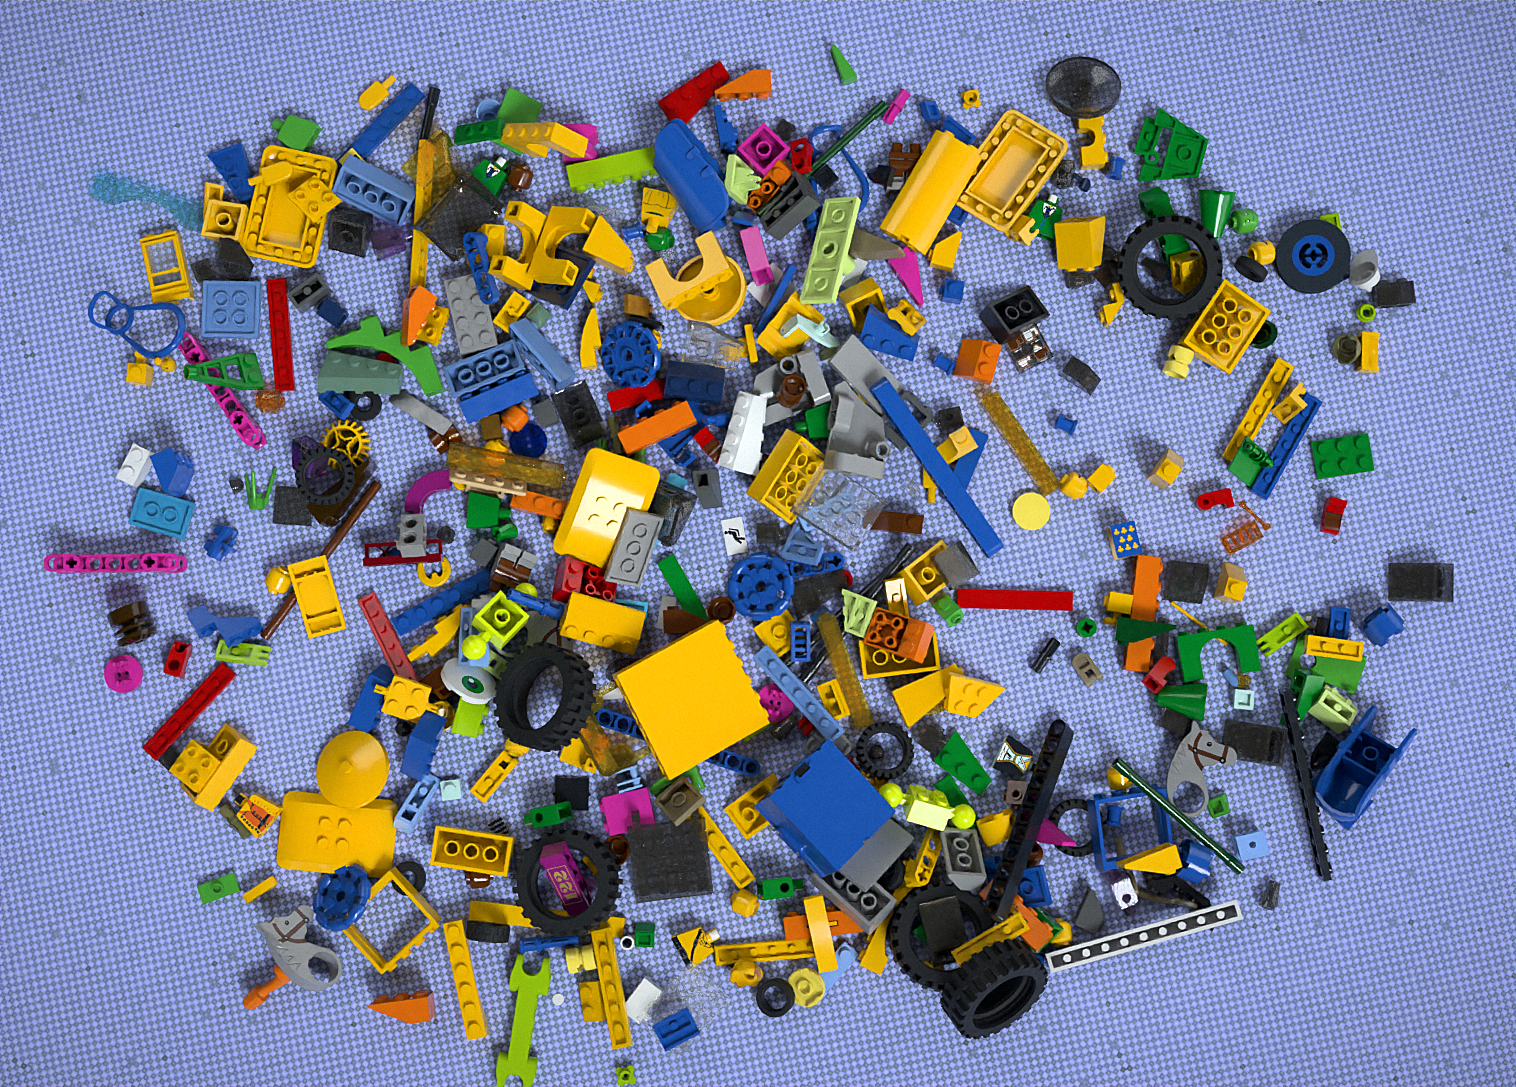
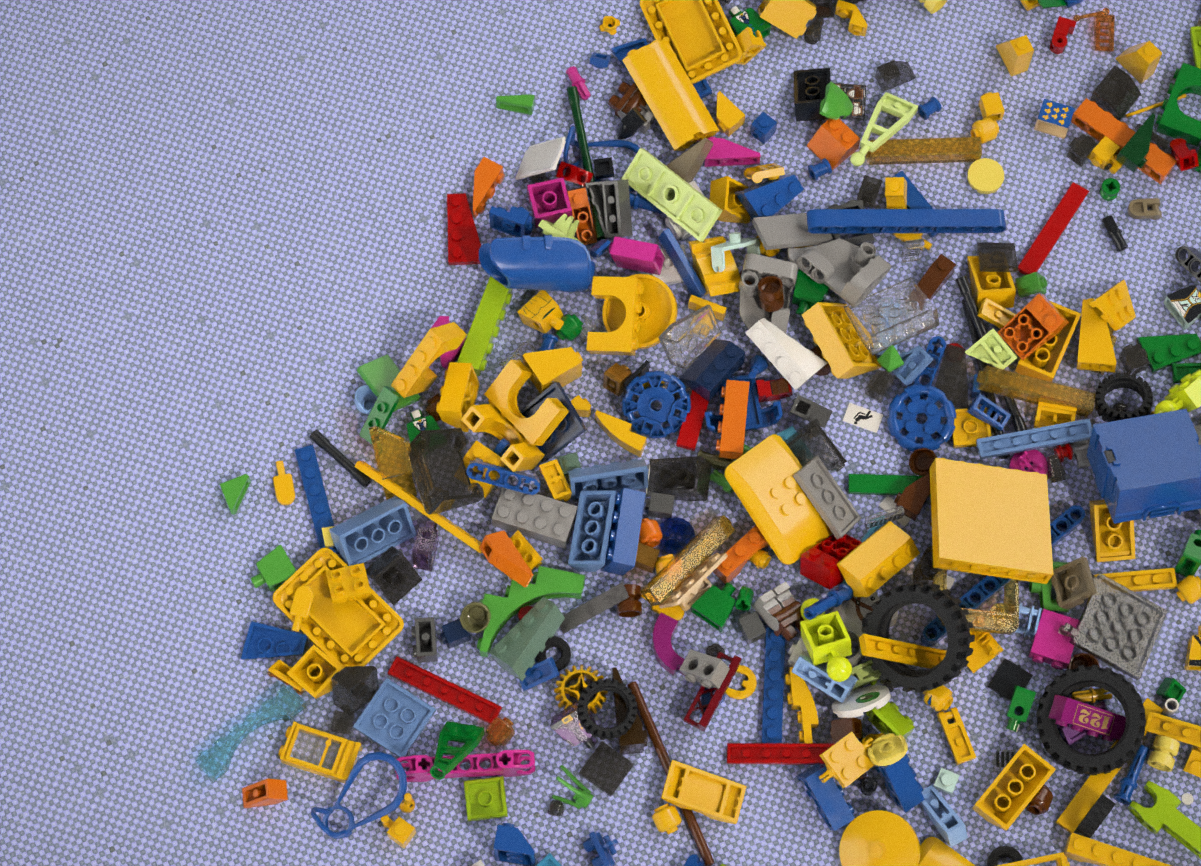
camera: 60 degrees left, 15 degrees down
(107, 247) = (265, 793): none -> orange slope
(208, 424) = (485, 798): none -> lime plate
(342, 58) = (234, 491): none -> bright green slope
(347, 320) = (475, 617): none -> olive hair
(431, 727) = (887, 749): none -> light yellow tile
(513, 250) = (502, 447): none -> blue tile
(523, 687) = (900, 651): none -> yellow plate
(536, 184) = (457, 394): none -> yellow slope
(646, 606) = (883, 517): none -> clear tile
(795, 529) = (890, 359): none -> bright green slope
(797, 118) = (541, 158): none -> white window
(1010, 340) = (835, 103): none -> bright green brick
(1047, 394) = (894, 106): none -> yellowish green plate
(1109, 581) = (1081, 149): none -> clear smoke brick

